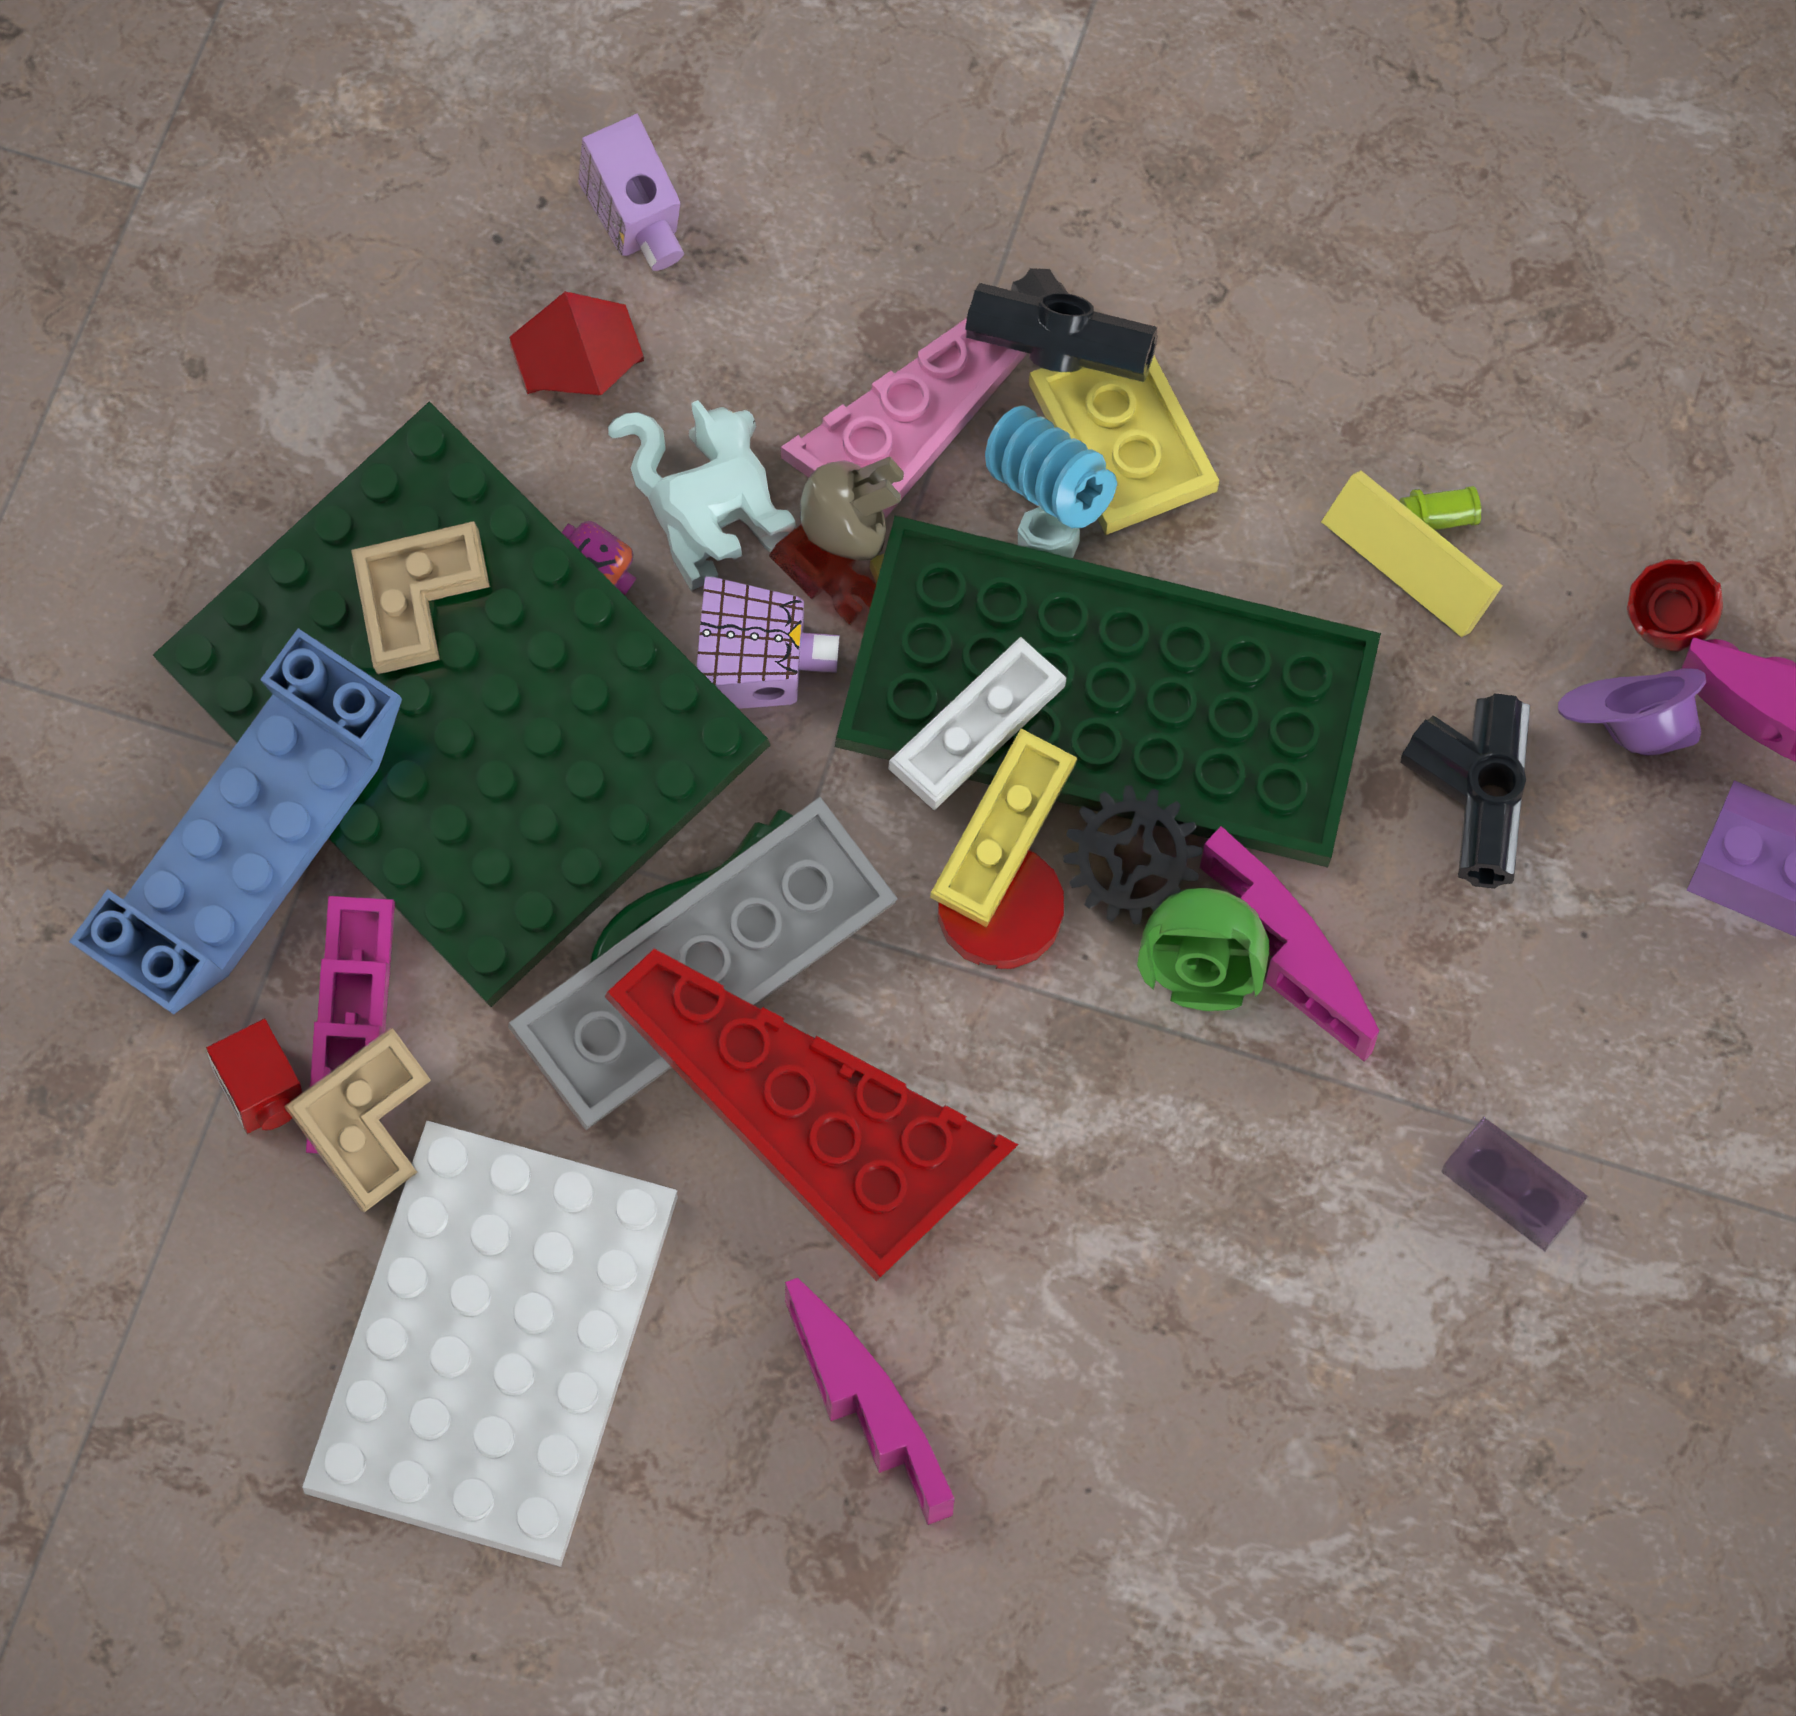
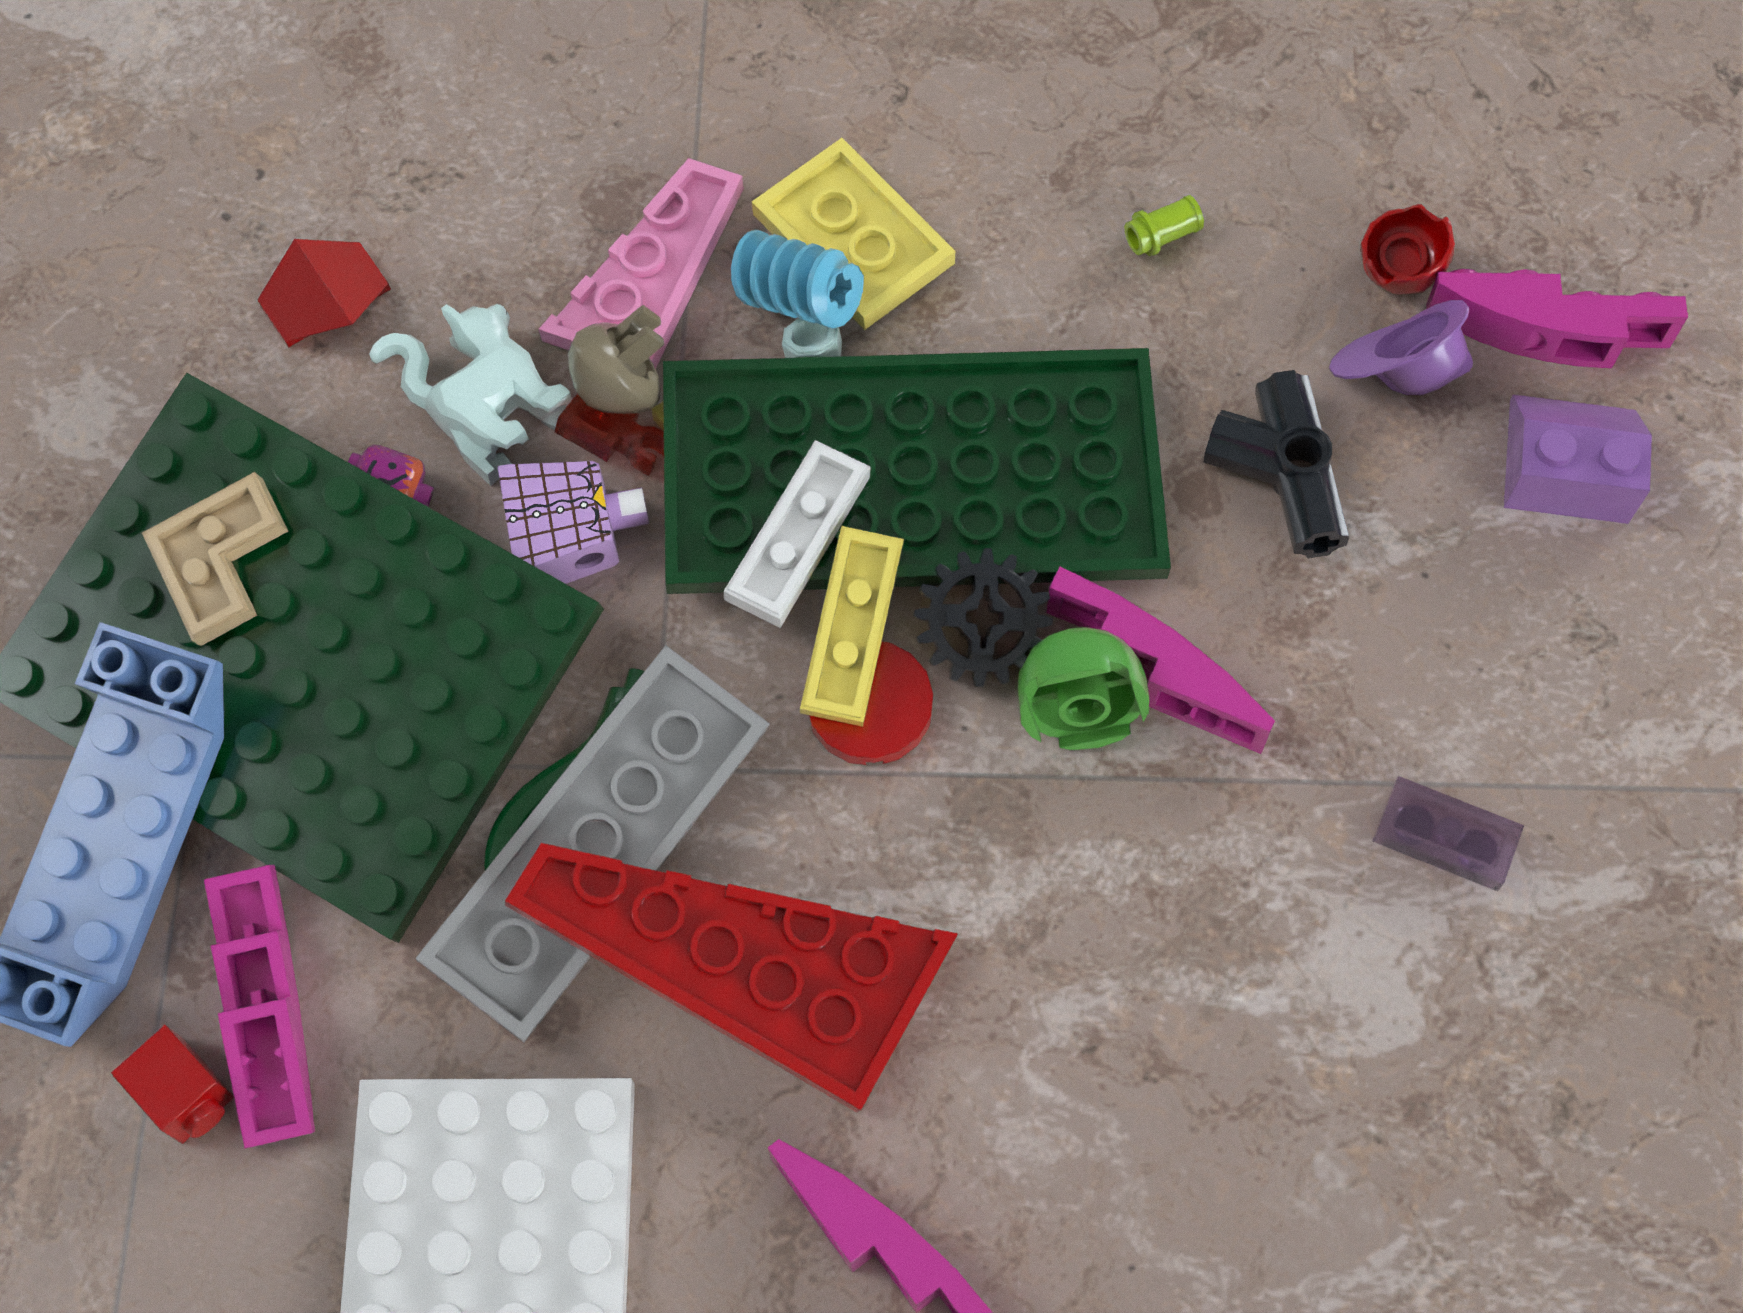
camera: 10 degrees left, 0 degrees up
(344, 1114) = (272, 1103): tan tile -> none
(631, 192) = (335, 135): lavender torso -> none
(1059, 328) = (768, 152): black piece -> none
(1411, 553) = (1152, 269): light yellow tile -> none

